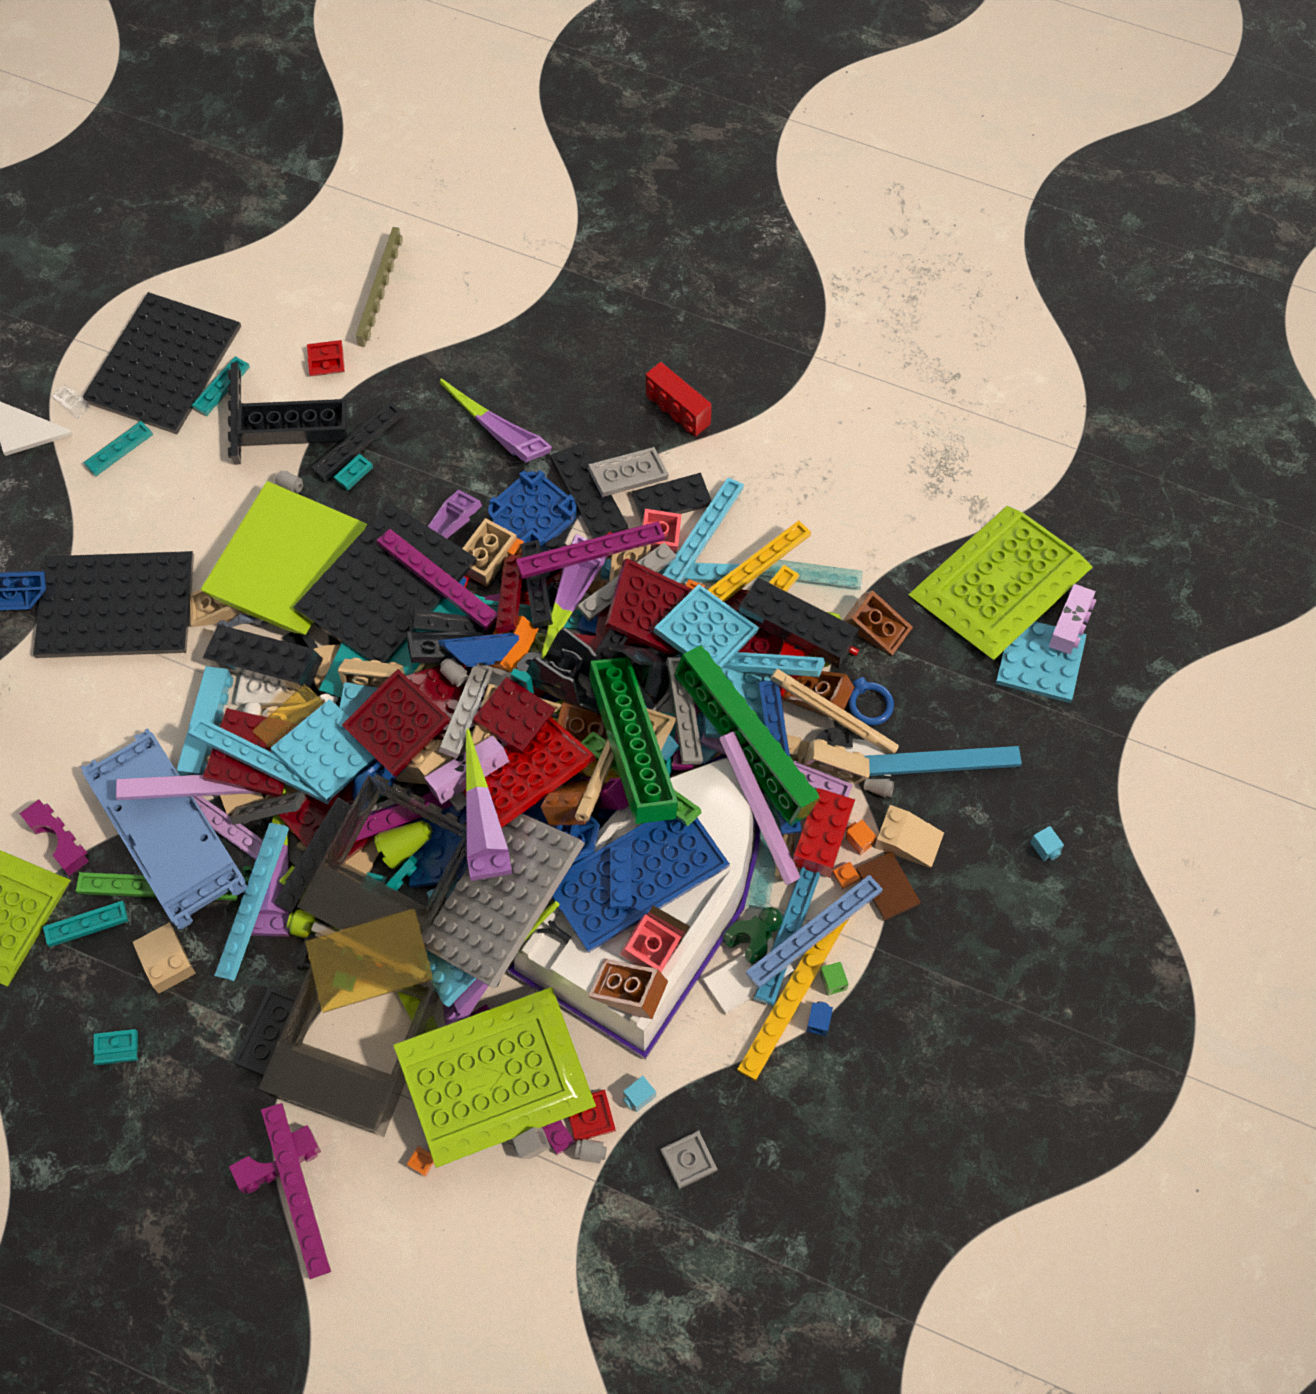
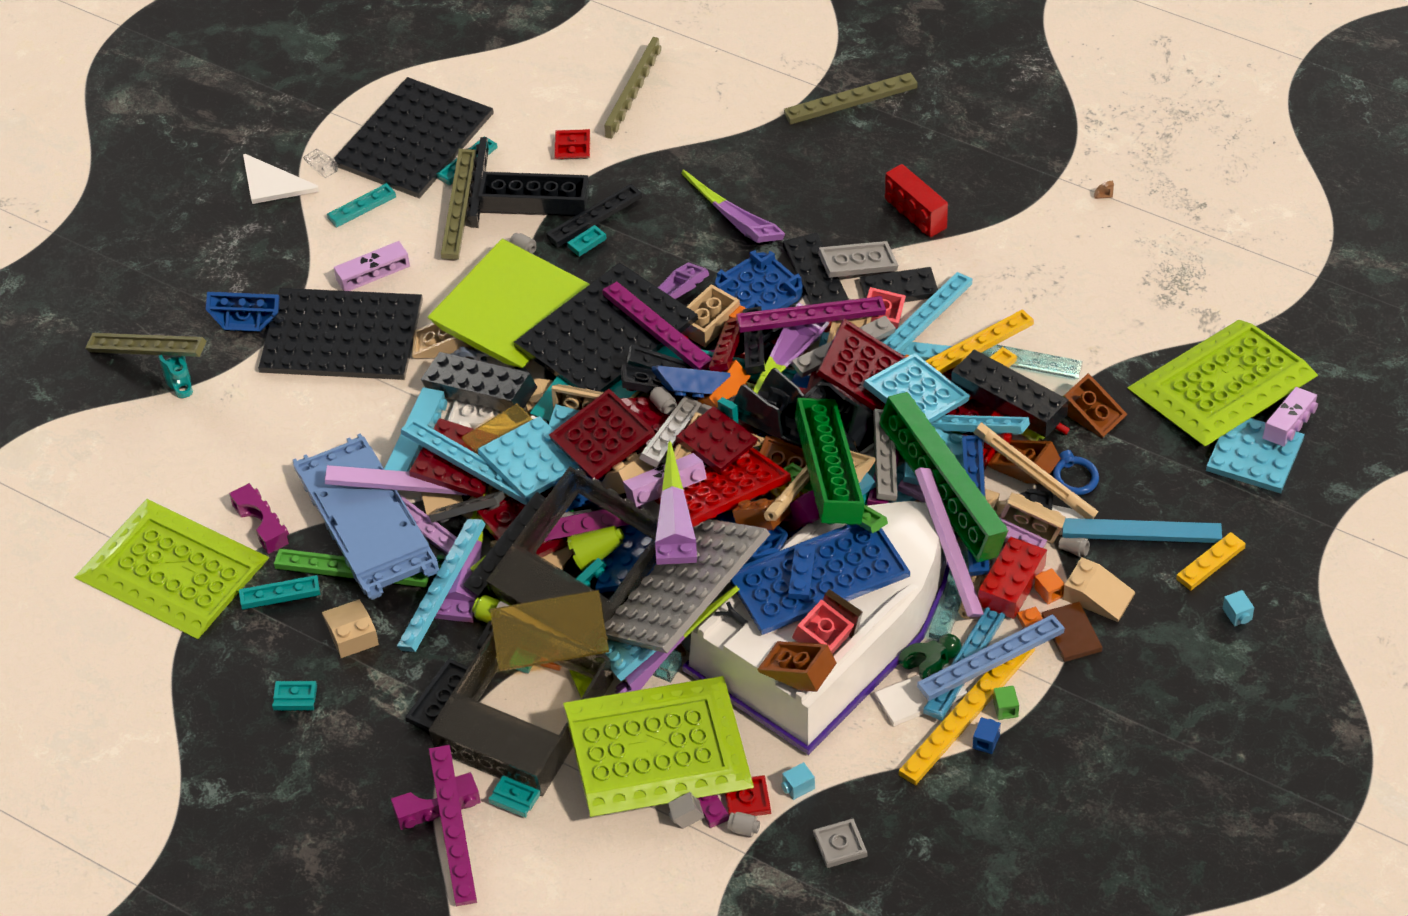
camera: 10 degrees right, 15 degrees down
(137, 522) = (371, 266): none -> lavender brick
(217, 441) = (458, 204): none -> olive plate
(355, 1143) = (514, 796): none -> teal plate
(421, 1161) = (576, 817): orange plate -> none
(598, 280) = (850, 98): none -> olive plate
(860, 369) = (1105, 190): none -> medium nougat tile
(1013, 789) = (1210, 561): none -> yellow plate

